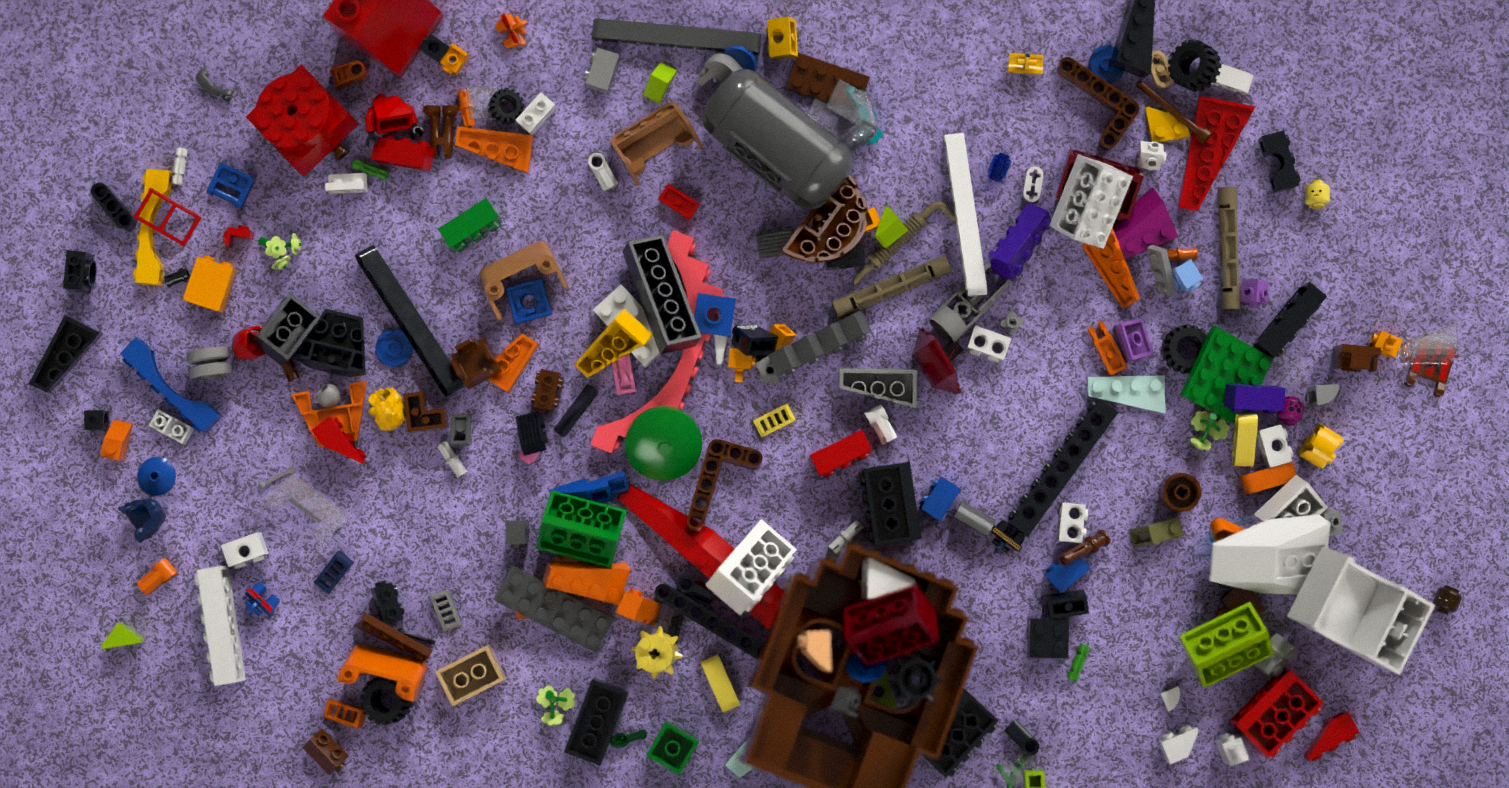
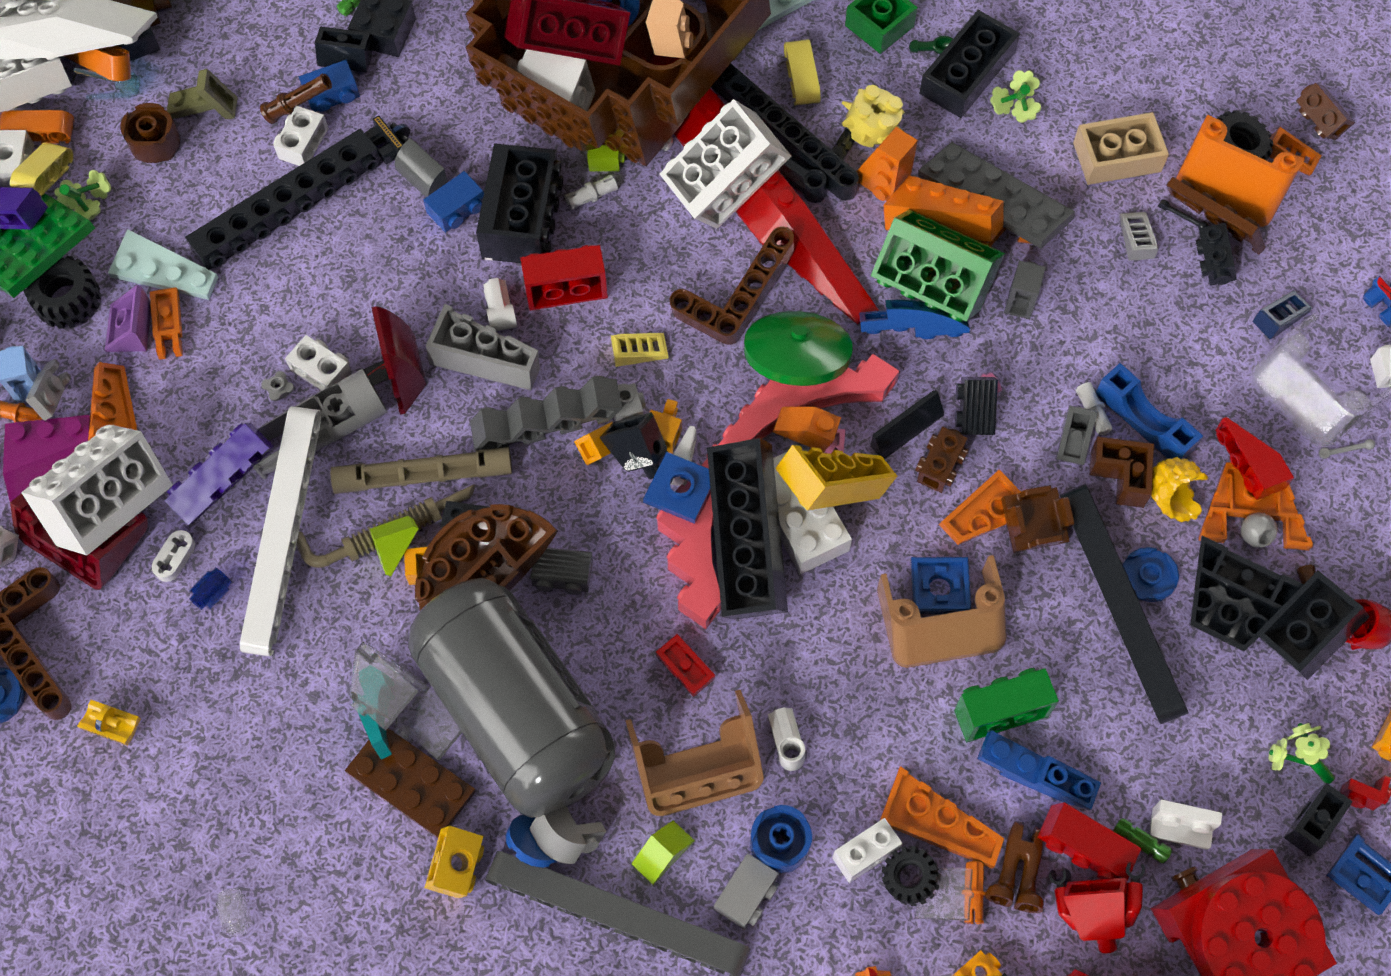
camera: 165 degrees left, 20 degrees down
(266, 207) = (1318, 819): none -> black brick
(414, 459) = (1125, 396): none -> blue arch
(440, 192) = (1038, 772): none -> blue slope
(582, 97) = (769, 826): none -> blue brick
(641, 381) = (807, 426): none -> orange slope

